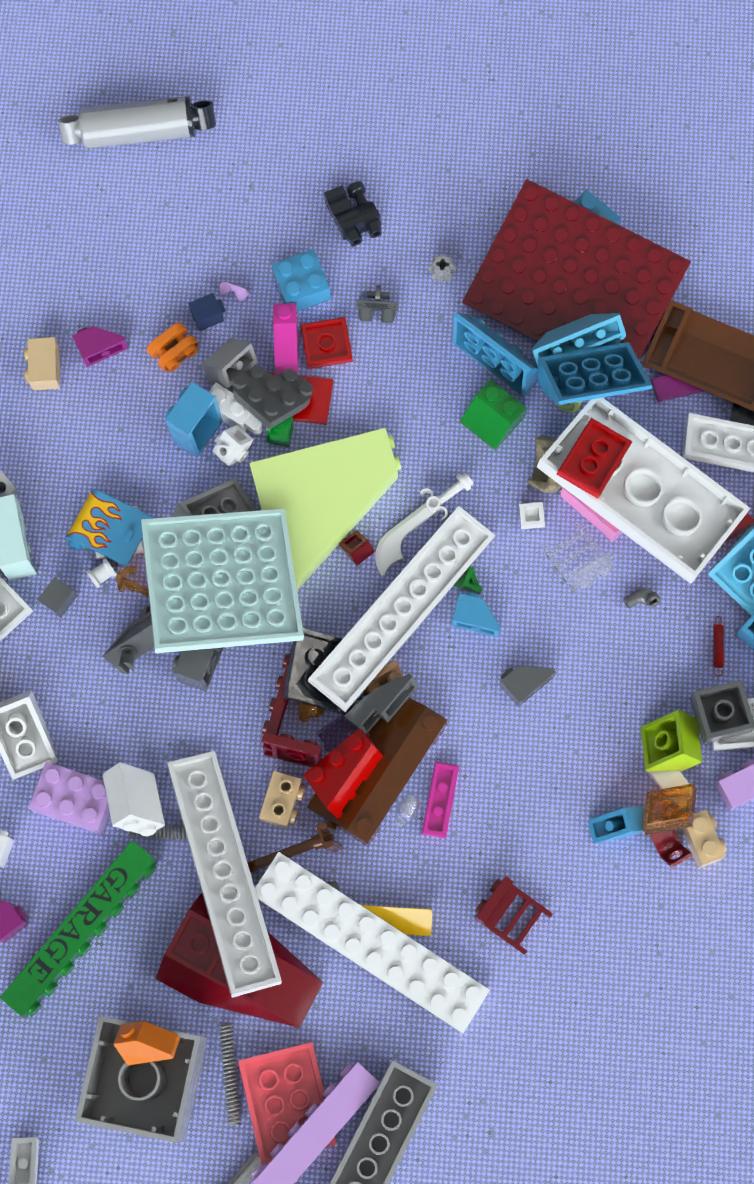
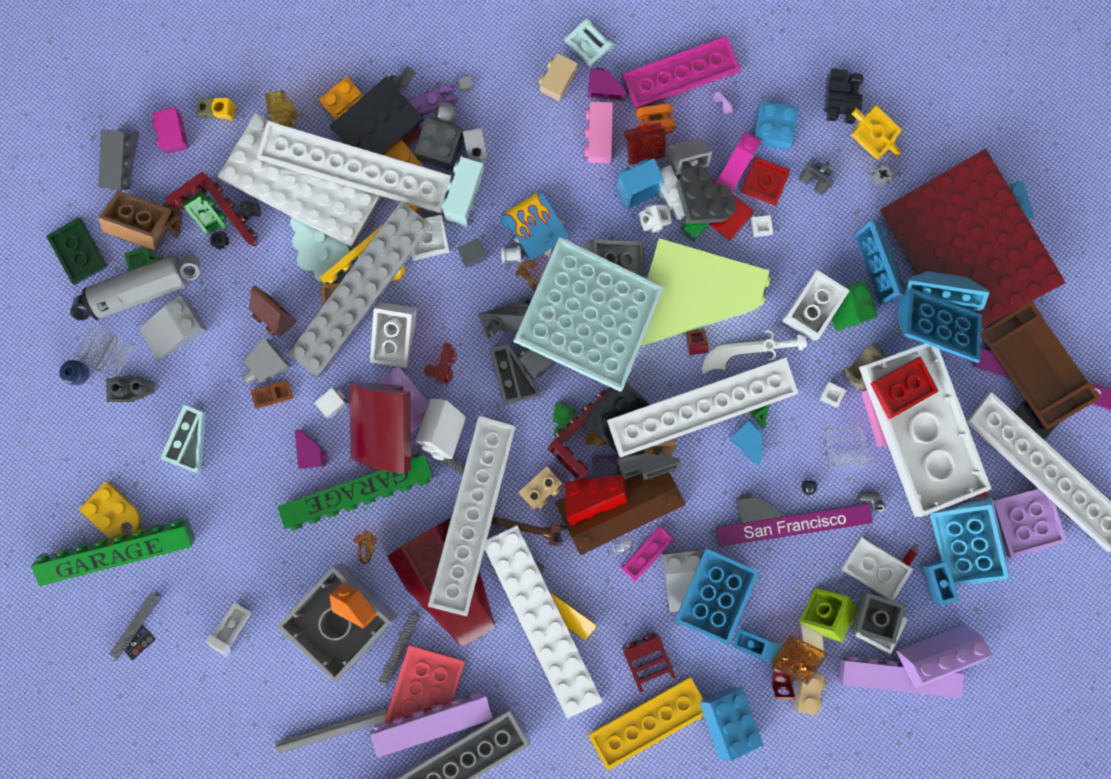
camera: 30 degrees right, 10 degrees up
(54, 317) = (584, 46): none -> light aqua plate
(63, 835) = (380, 426): none -> dark red slope
(101, 739) = (443, 373): none -> clear red plate
(120, 394) = (599, 132): none -> bright pink brick
(125, 974) = (368, 539): none -> clear orange piece
(170, 286) = (681, 72): none -> dark pink plate
(174, 374) = (645, 143): none -> clear red plate
(179, 701) = (512, 378): none -> dark grey wedge
(207, 311) = (695, 107): dark blue brick -> none
(258, 708) = (562, 415): none -> green plate
(350, 389) = (761, 226): none -> white plate
(409, 229) = (876, 132): none -> yellow plate
(456, 435) = (815, 306): none -> white slope
(497, 802) = (678, 573): none -> light grey slope
(540, 796) = (716, 596): none -> dark azure slope
(554, 982) = (647, 723): none -> yellow plate
(568, 625) = (809, 487): none -> black hinge
(576, 674) = (794, 525): none -> magenta tile
(641, 924) = (731, 723): none -> dark azure piece
(691, 666) = (876, 569): none -> white tile

